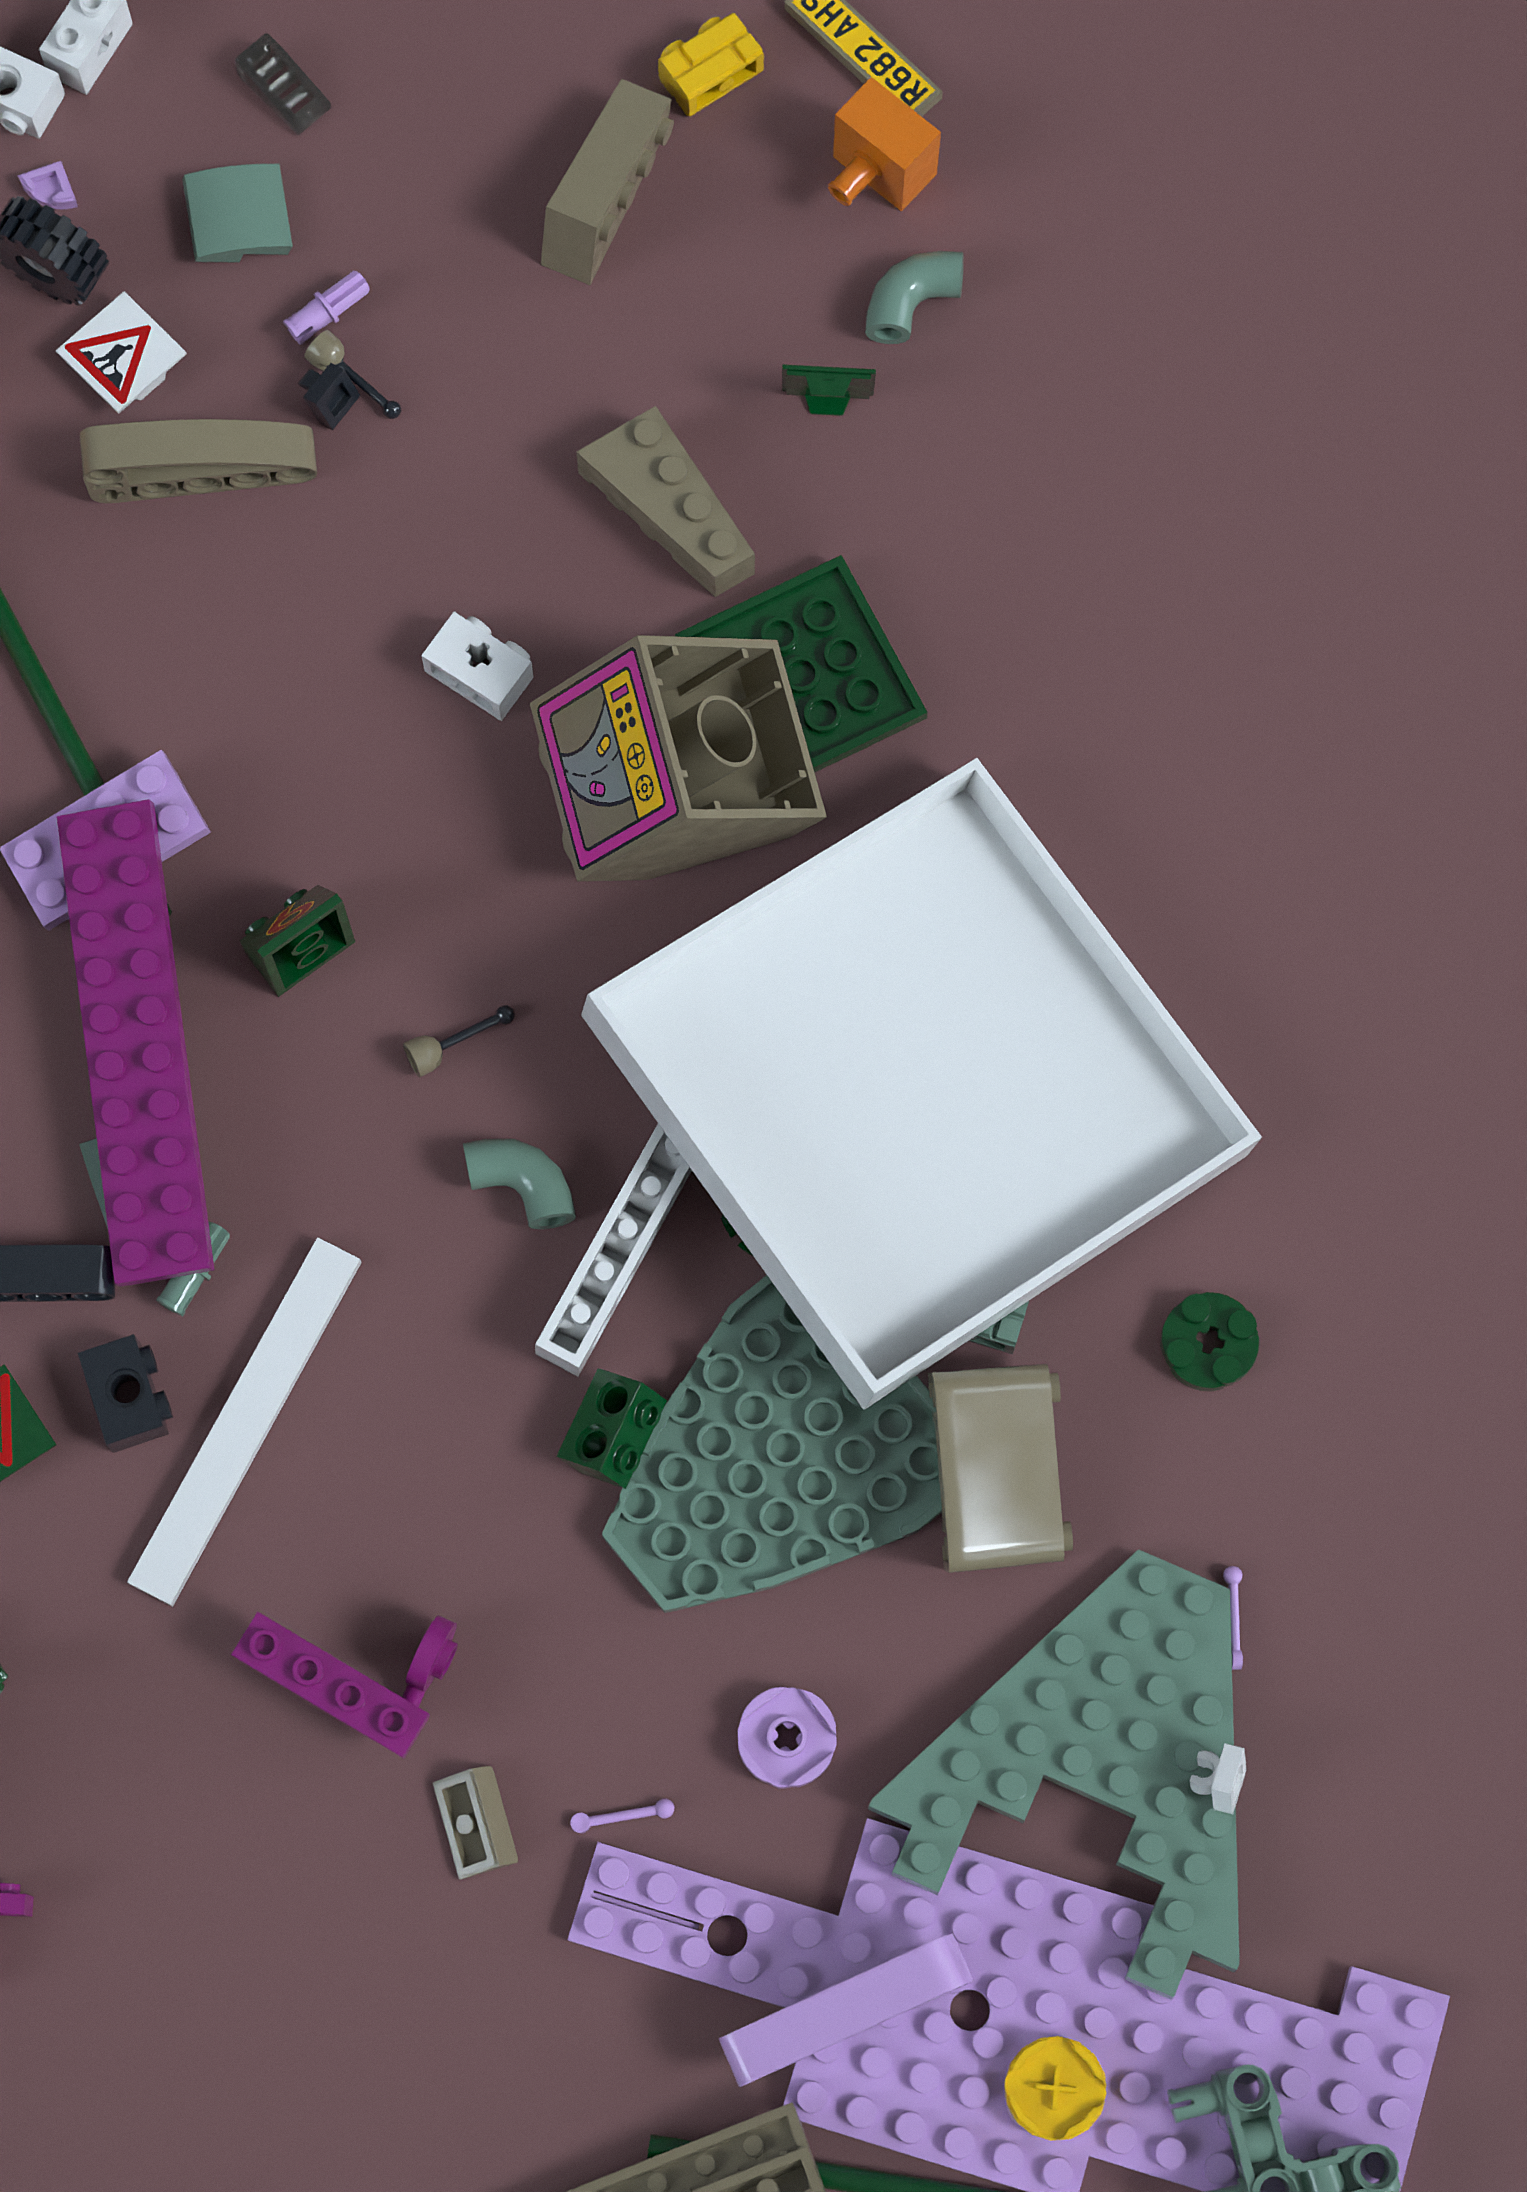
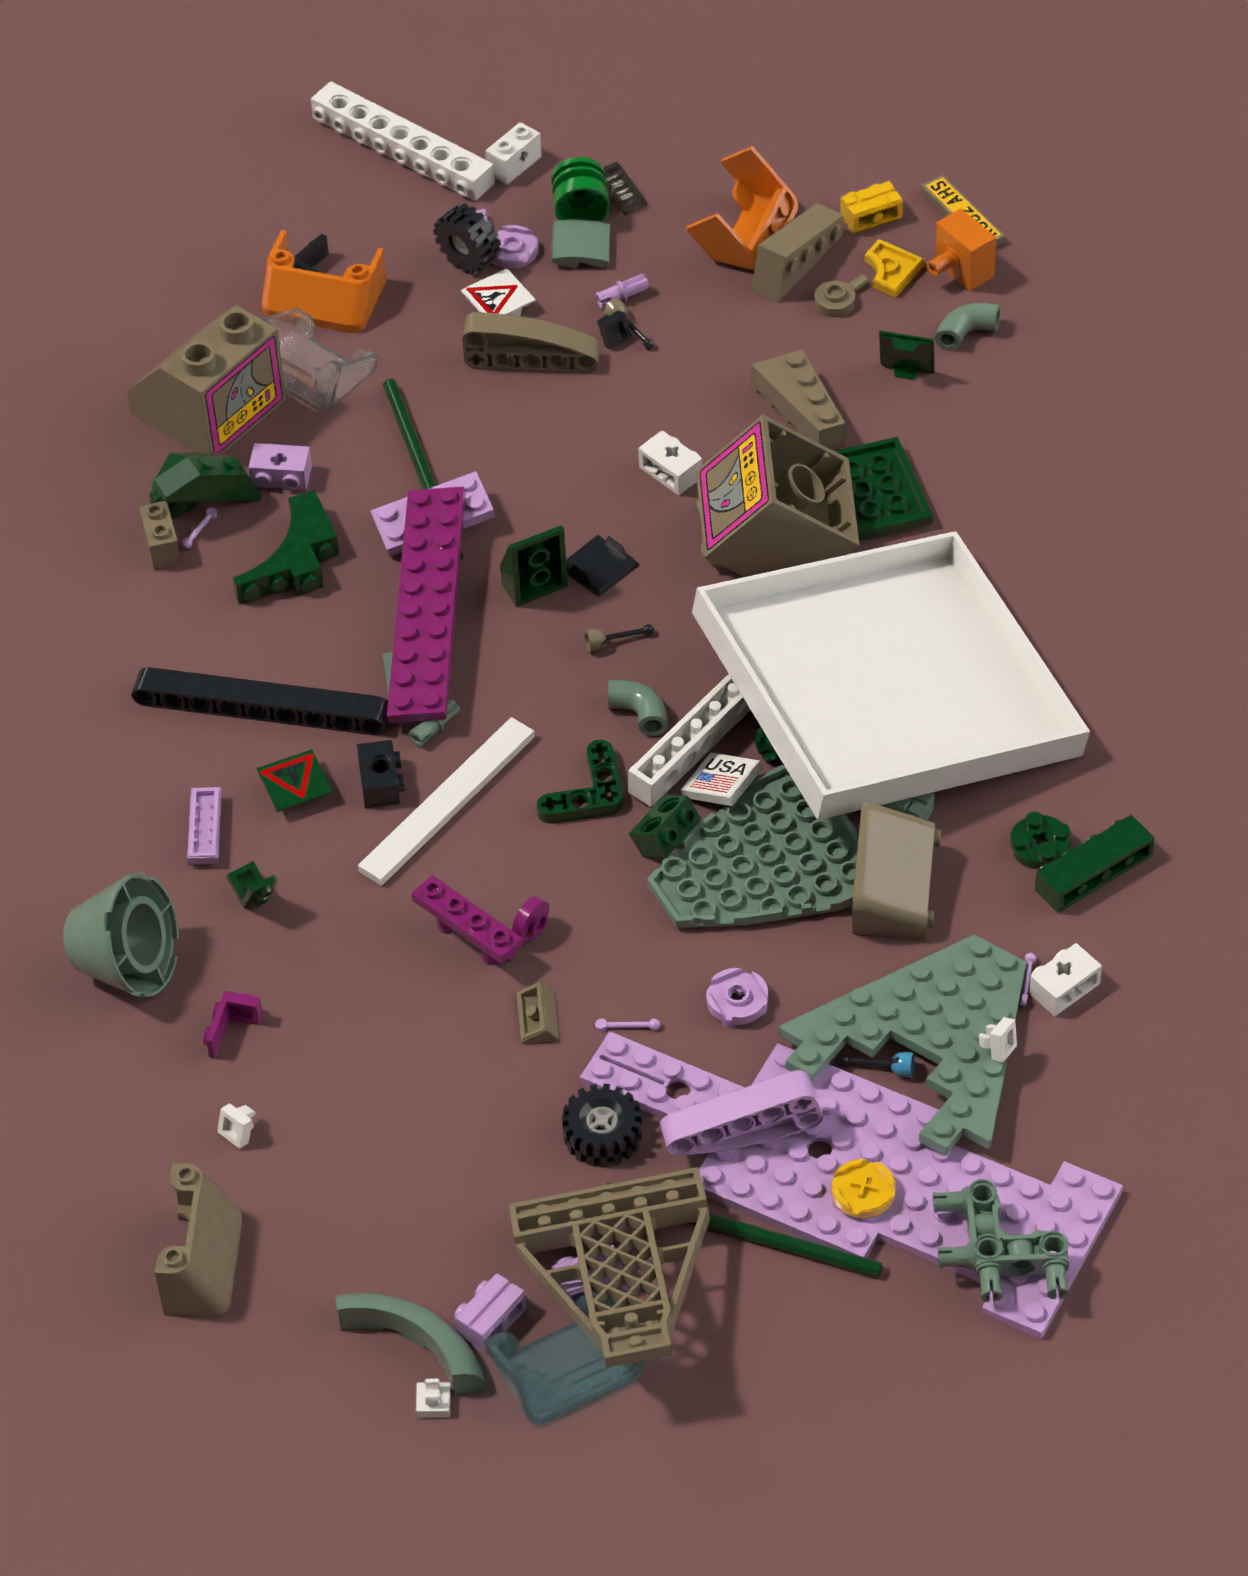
camera: 15 degrees right, 25 degrees down
(39, 2135) = (236, 1124): none -> white tile
(128, 231) = (517, 246): none -> lavender tile
(218, 114) = (580, 190): none -> green wheel
(398, 889) = (600, 564): none -> black piece
(481, 1372) = (594, 795): none -> dark green beam
(531, 121) = (765, 207): none -> orange windscreen
(599, 2020) = (606, 1110): none -> black wheel
(683, 1312) = (721, 779): none -> white tile
(685, 262) = (837, 297): none -> dark tan piece
(769, 183) = (892, 267): none -> yellow tile
(1067, 1823) = (901, 1064): none -> hinge
(1304, 1378) = (1094, 863): none -> dark green brick
(1321, 1602) = (1065, 979): none -> white brick

